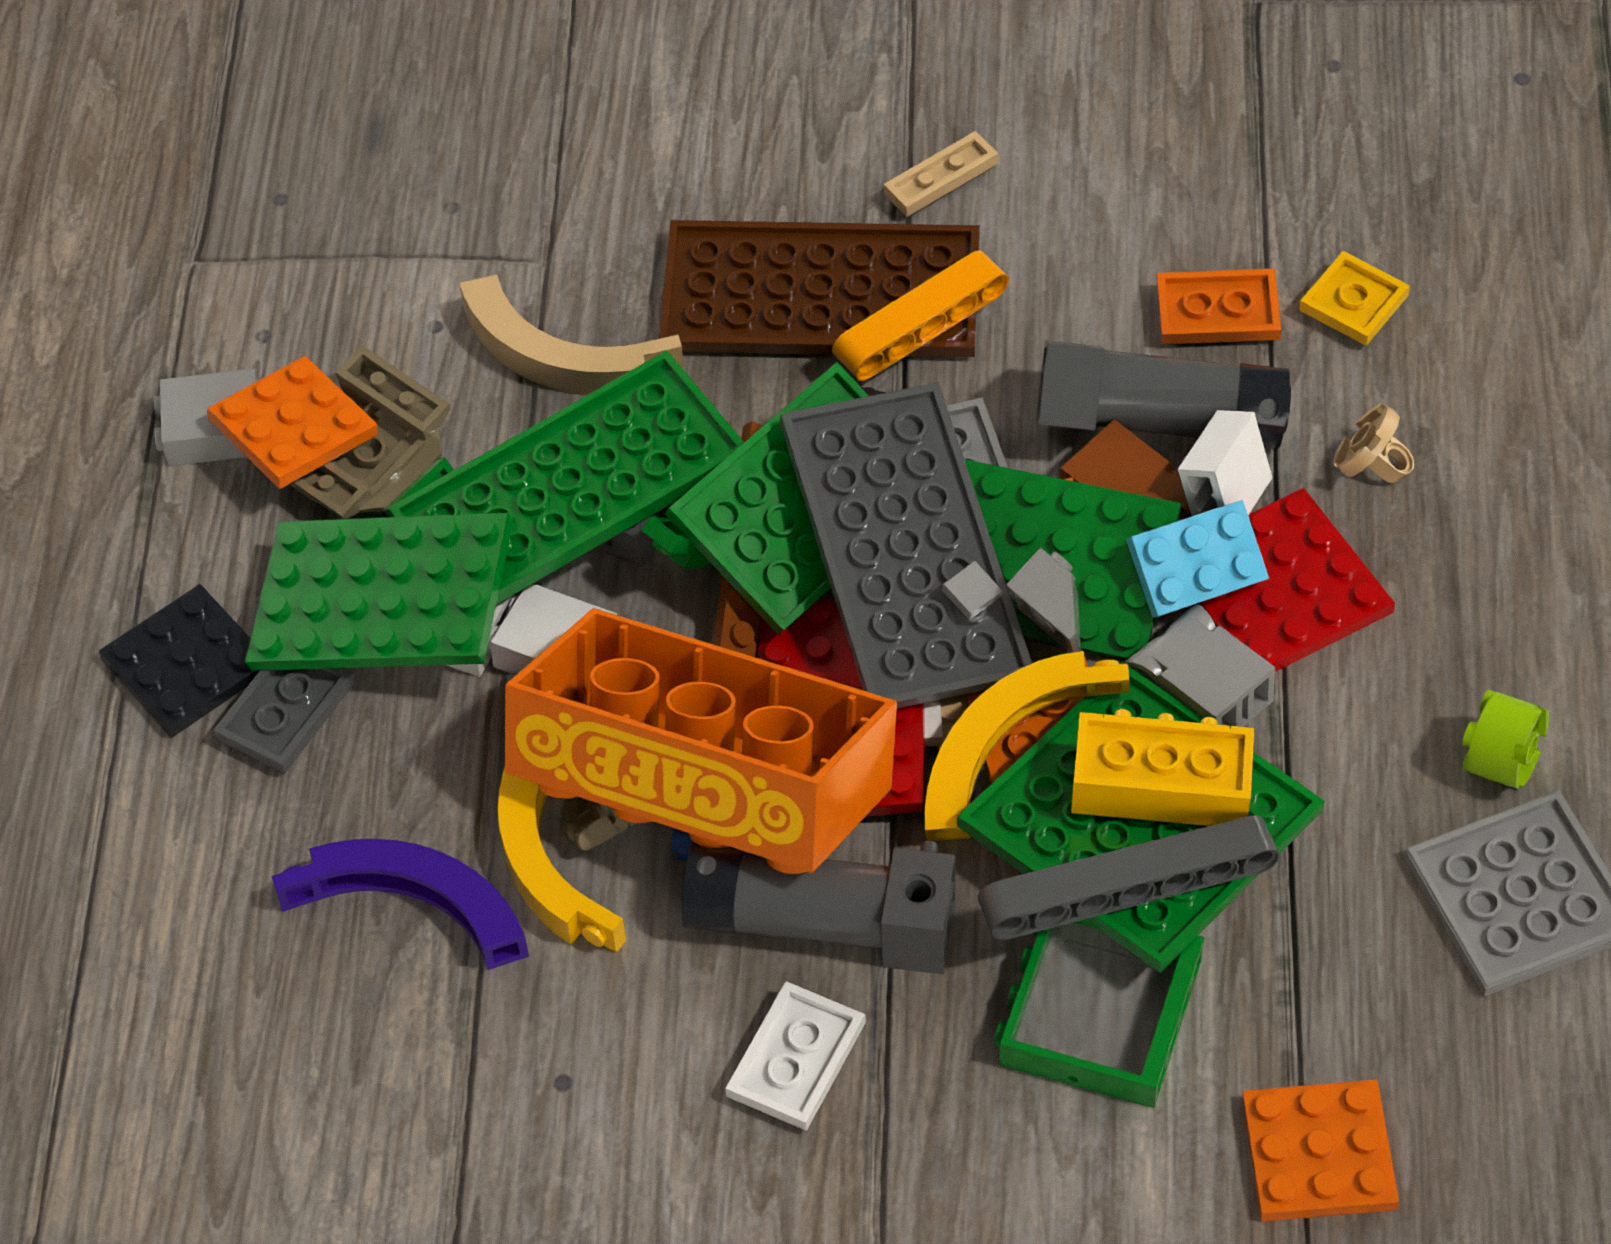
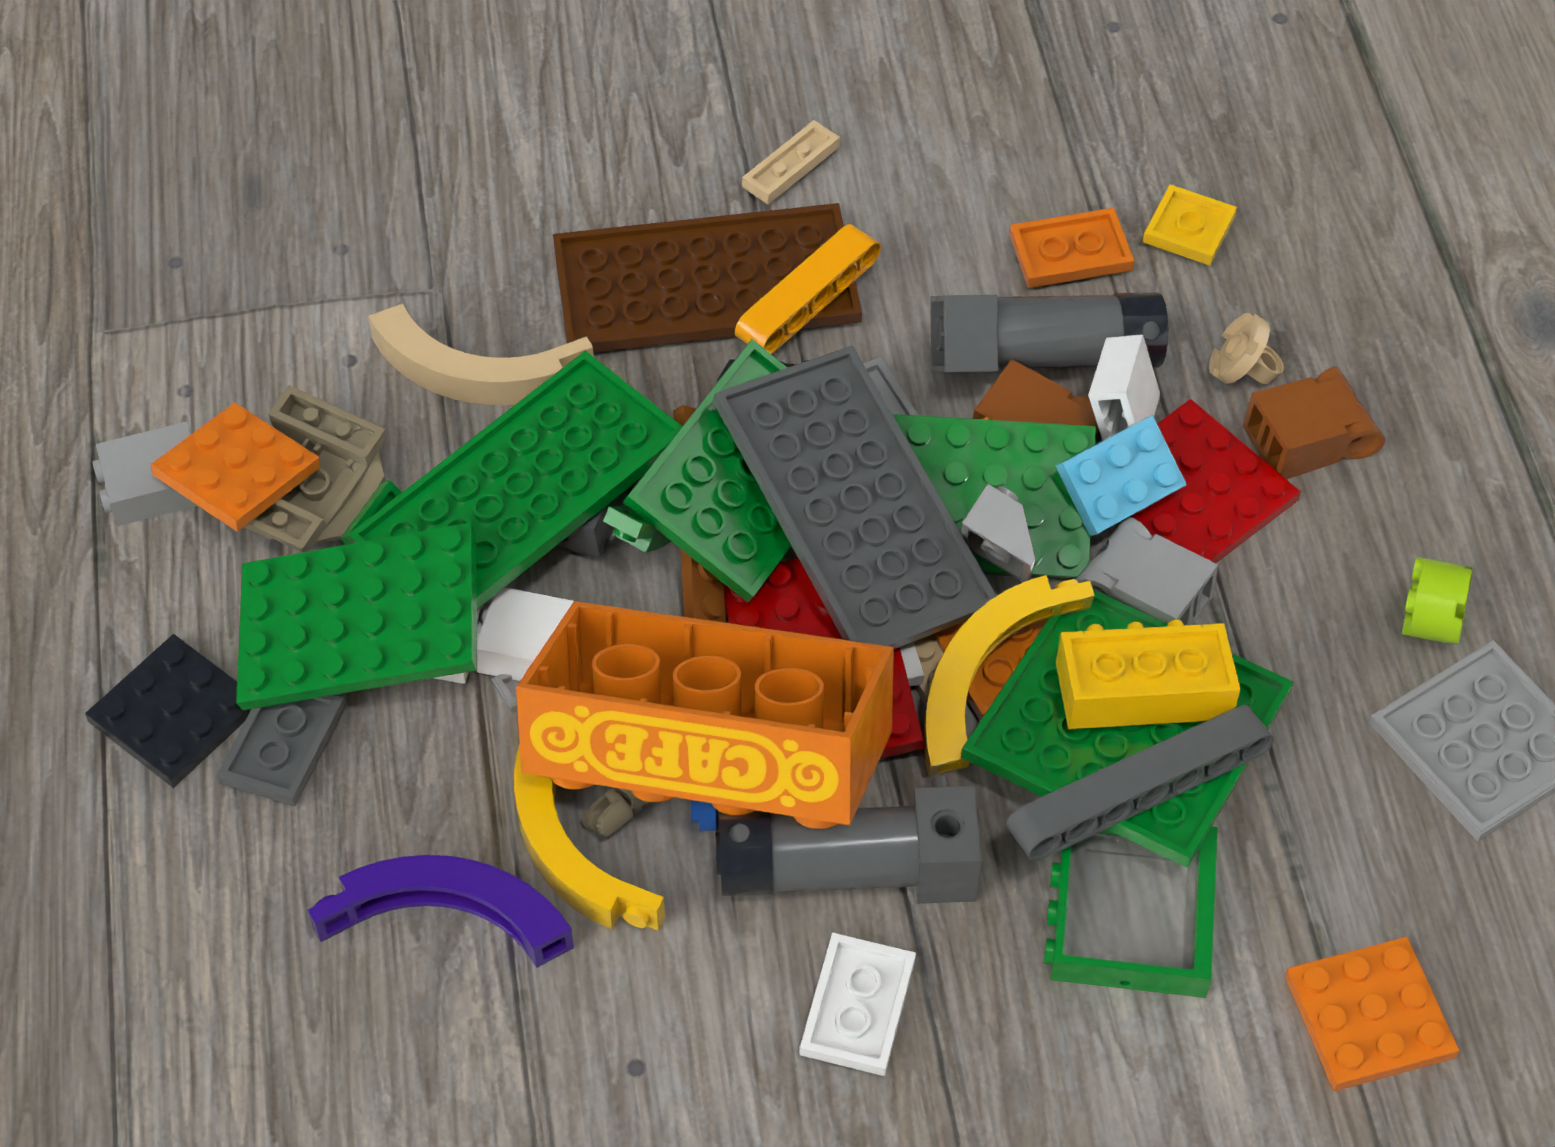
camera: 15 degrees left, 0 degrees up
(972, 590) = (927, 533): light grey tile -> none
(1424, 532) = (1310, 424): none -> dark orange piece

